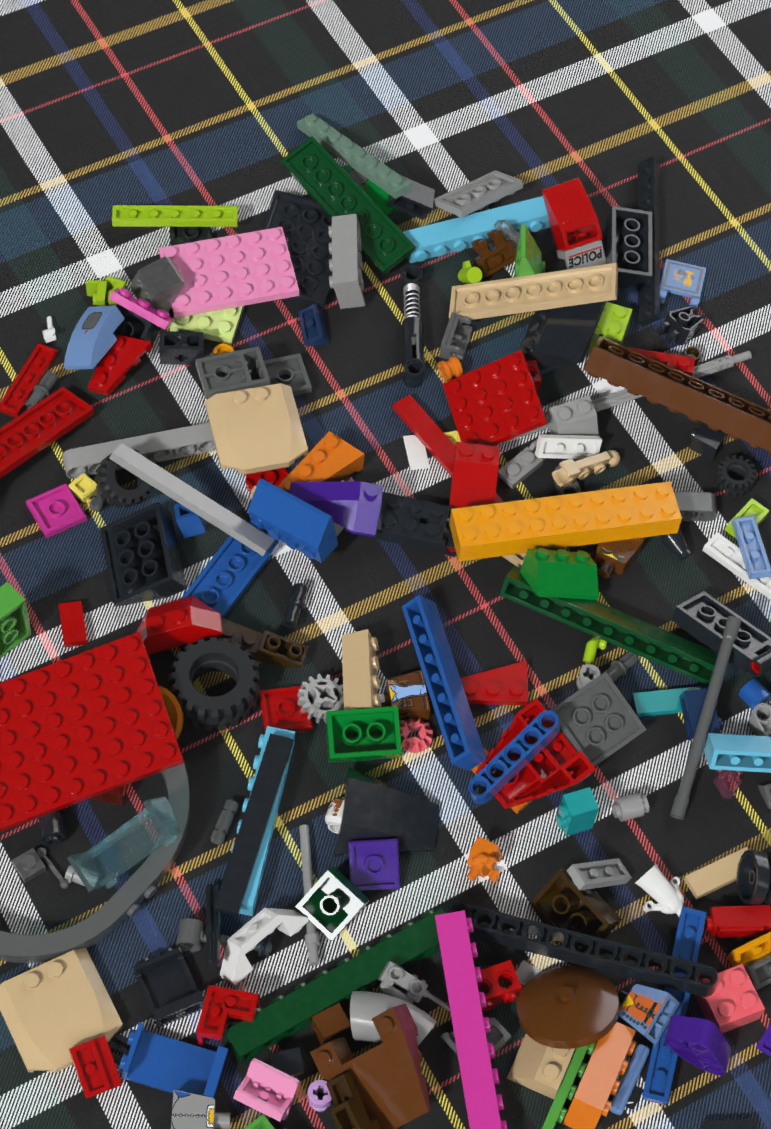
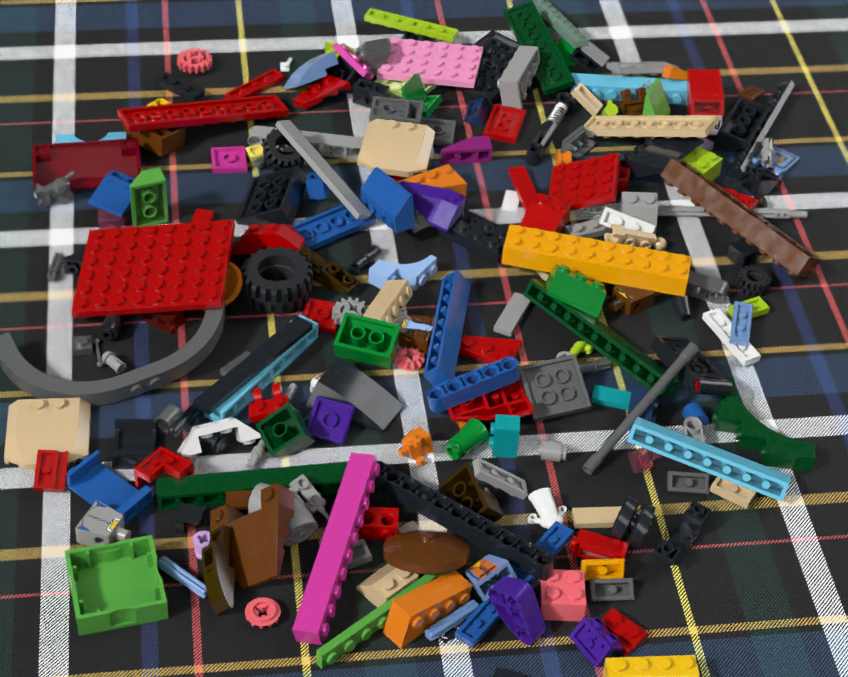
camera: 25 degrees right, 15 degrees down
(42, 390) = (264, 90): dark grey axle -> none
(127, 845) = (154, 346): clear light blue windscreen -> none
(243, 335) = (415, 91): none -> green bracket
(267, 1090) = (164, 523): bright pink bracket -> none
(297, 873) = (262, 407): none -> red plate
(333, 622) = (416, 273): none -> light blue arch
(341, 392) = (470, 150): none -> magenta slope
(355, 333) = (505, 123): none -> red tile
(436, 265) = (586, 99): none -> tan tile
(497, 625) = (512, 314): none -> light grey tile
(524, 193) = (672, 72): none -> orange slope
(534, 829) = (467, 439): none -> green plant
(611, 200) = (752, 93): none -> reddish brown slope
(672, 278) = (767, 152): none -> light grey pin

